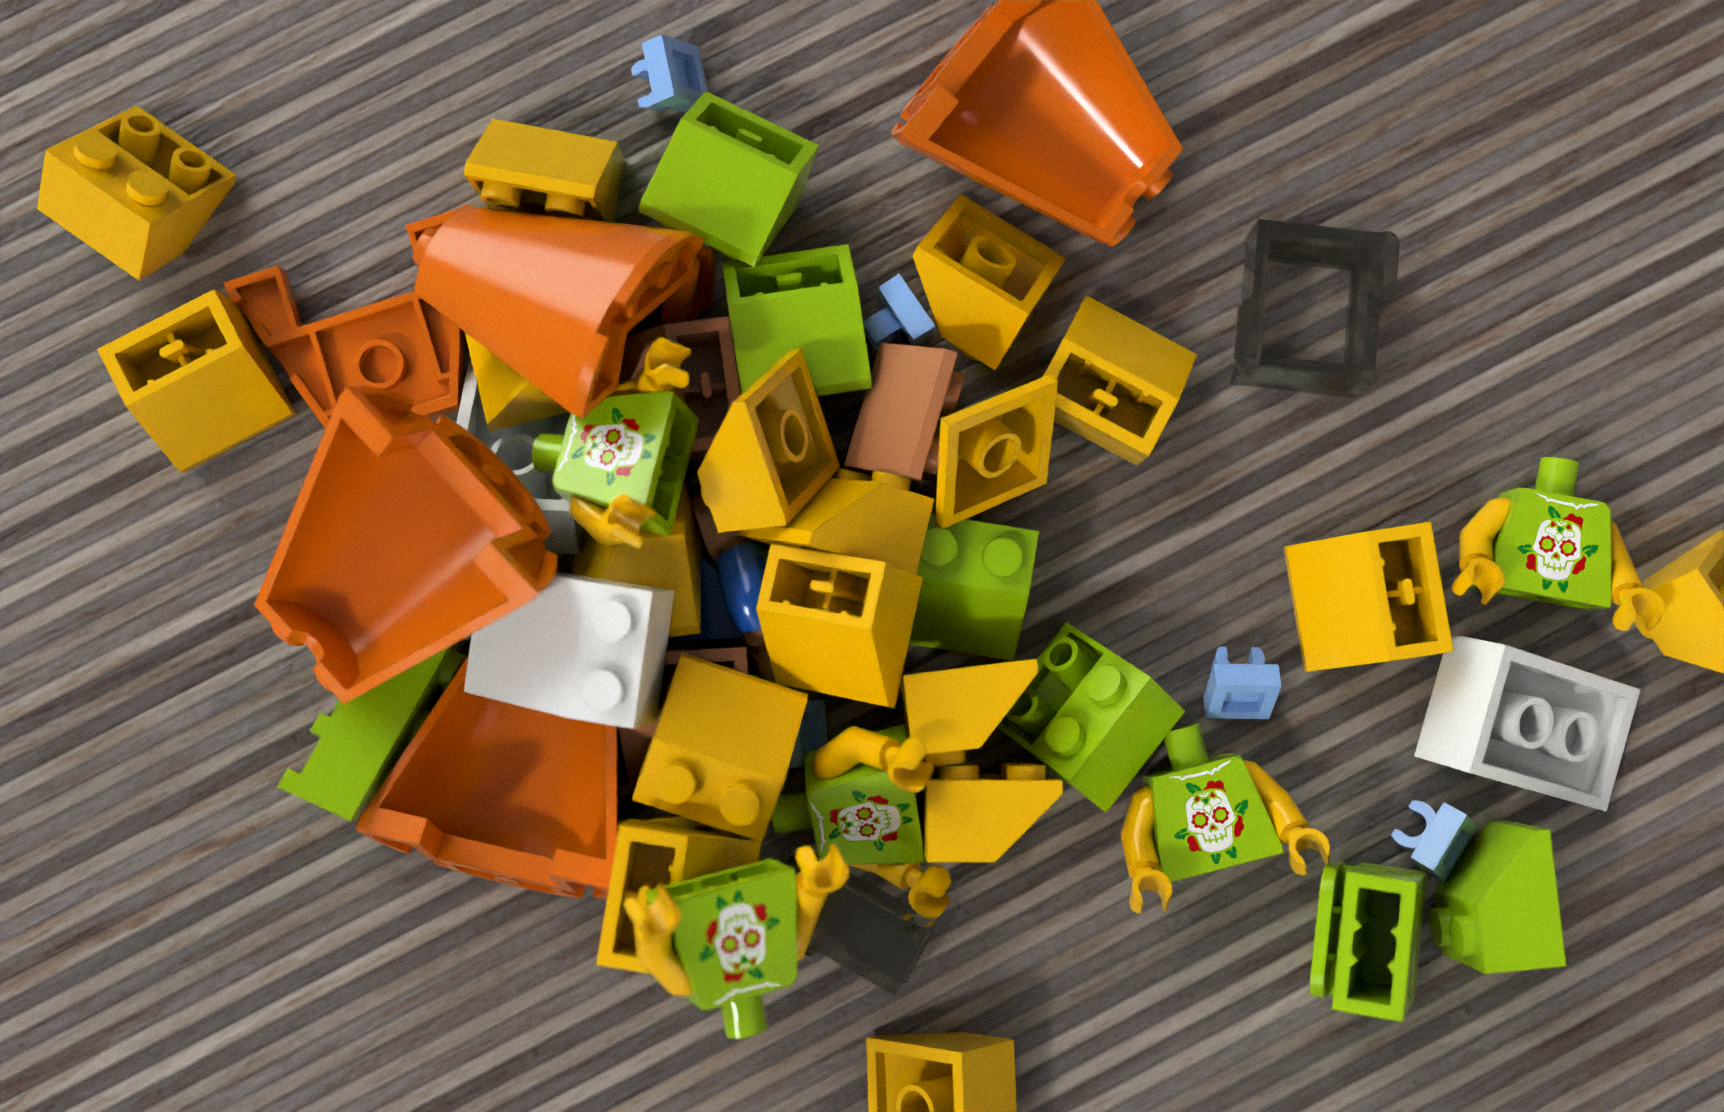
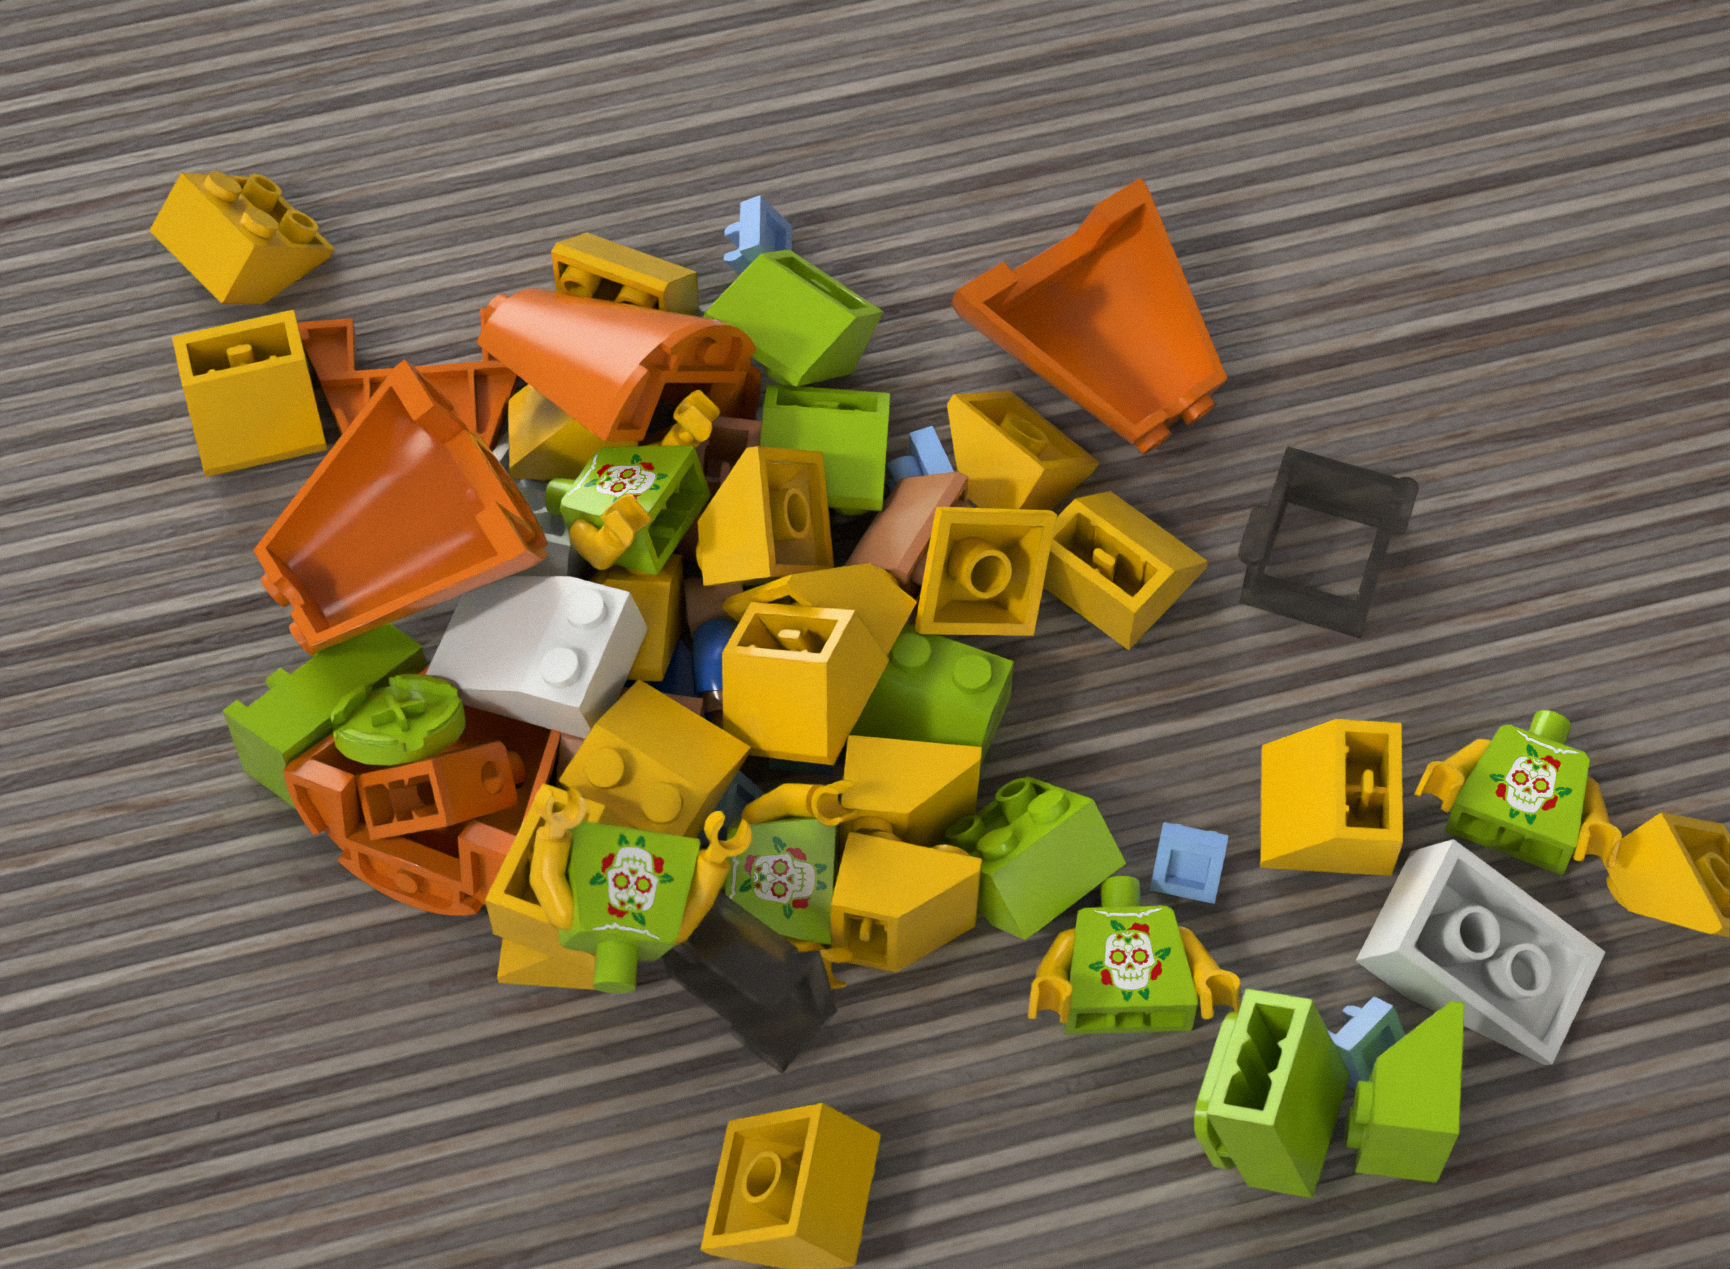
camera: 15 degrees right, 25 degrees down
(454, 755) = (398, 722): none -> lime tile
(518, 806) = (463, 782): none -> orange torso

